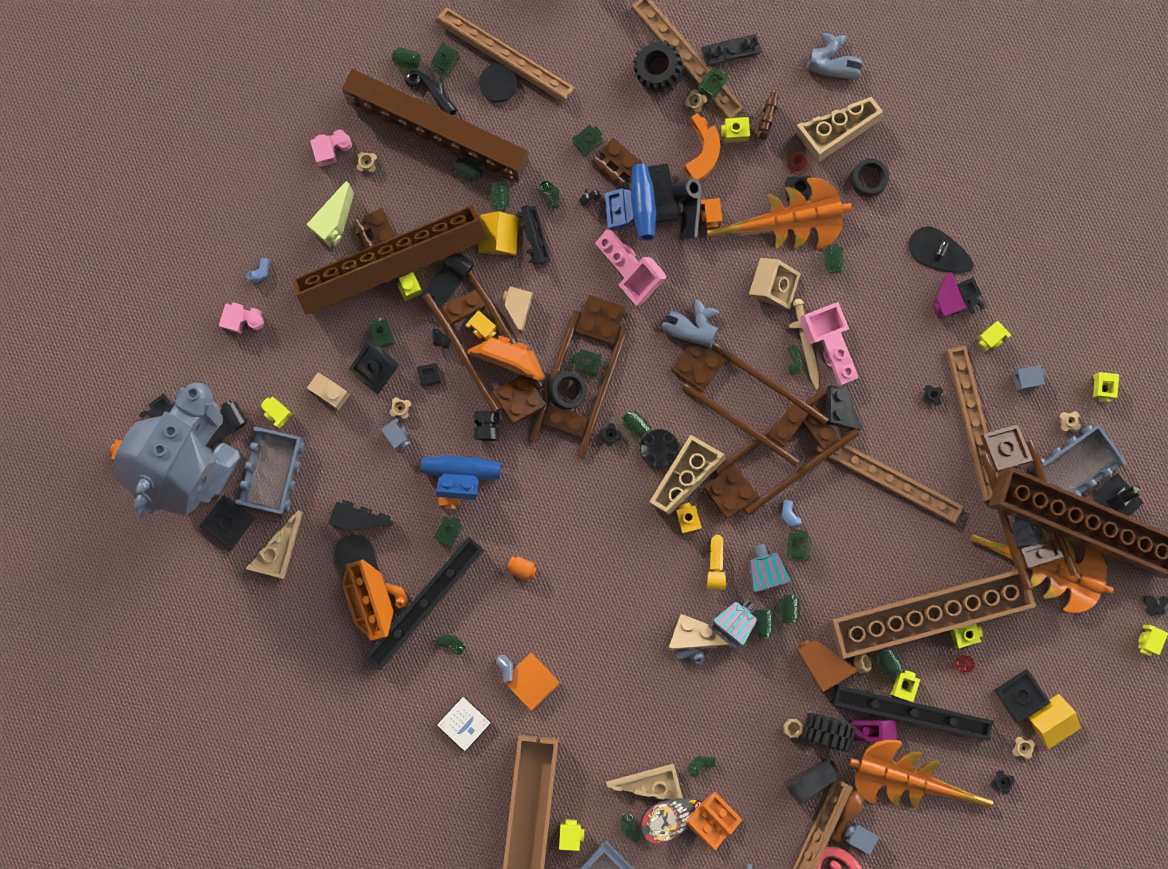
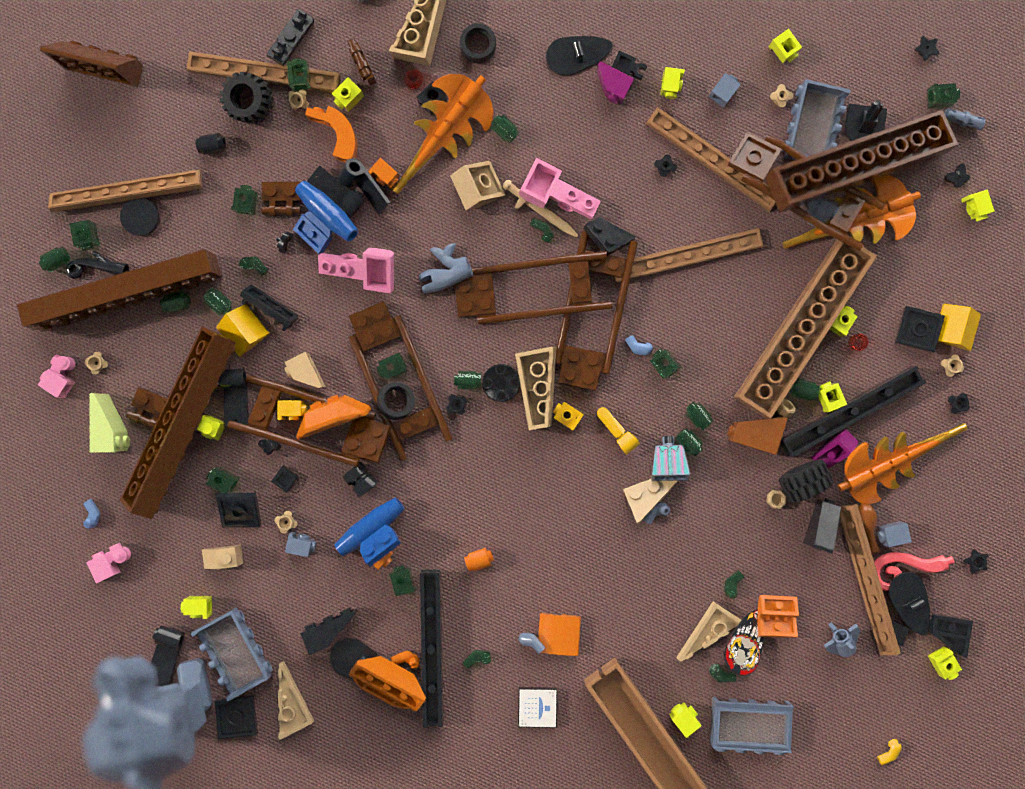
camera: 30 degrees left, 5 degrees up
(600, 76) = (210, 144): none -> black brick
(766, 570) = (657, 402): torso -> none

